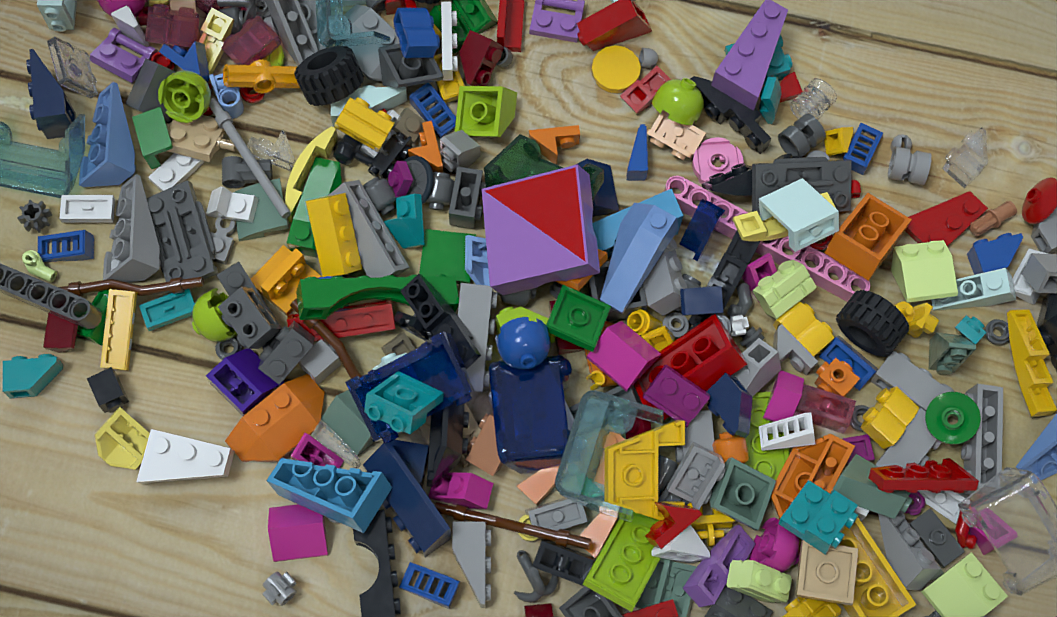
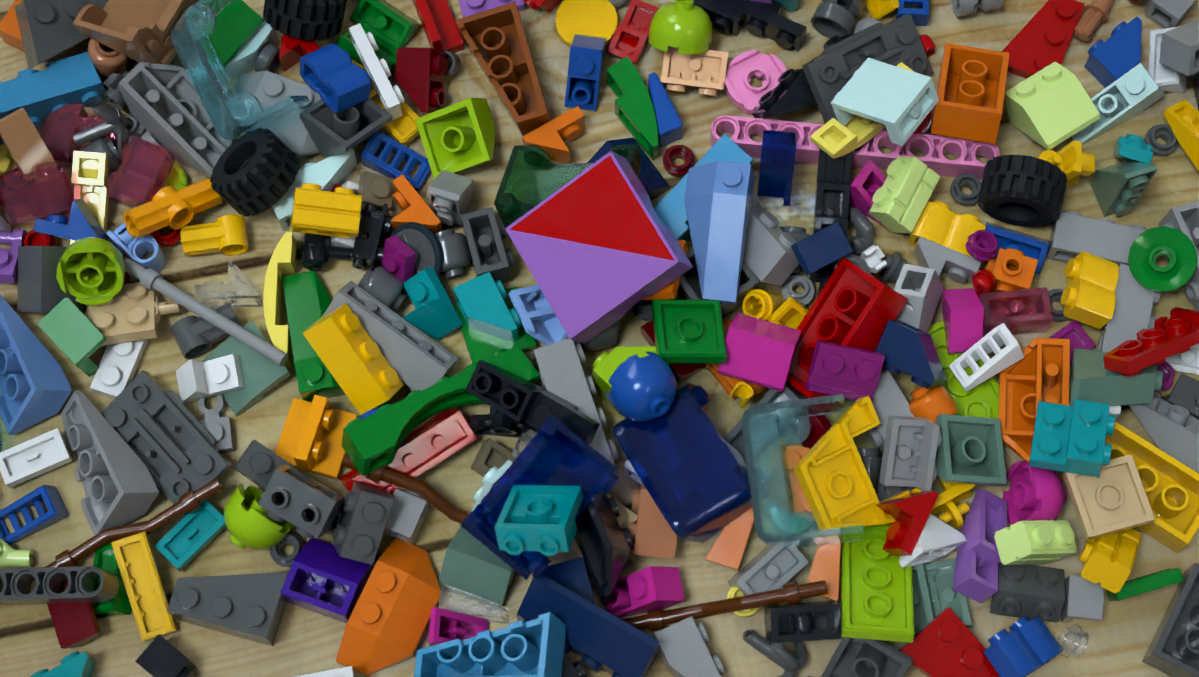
camera: 20 degrees left, 0 degrees up
(171, 369) = (232, 604): none -> dark grey wedge
(289, 111) = (225, 236): none -> yellow piece
(443, 239) = (485, 309): none -> teal slope
(545, 72) = (506, 59): none -> dark orange wedge
(597, 103) = (585, 72): none -> blue slope
(620, 141) = (634, 104): none -> green slope
(633, 188) = (680, 152): none -> dark red plate
(811, 376) = (983, 281): none -> red arm
(826, 346) = (982, 245): none -> magenta plate
(835, 298) = (969, 181): none -> dark grey plate

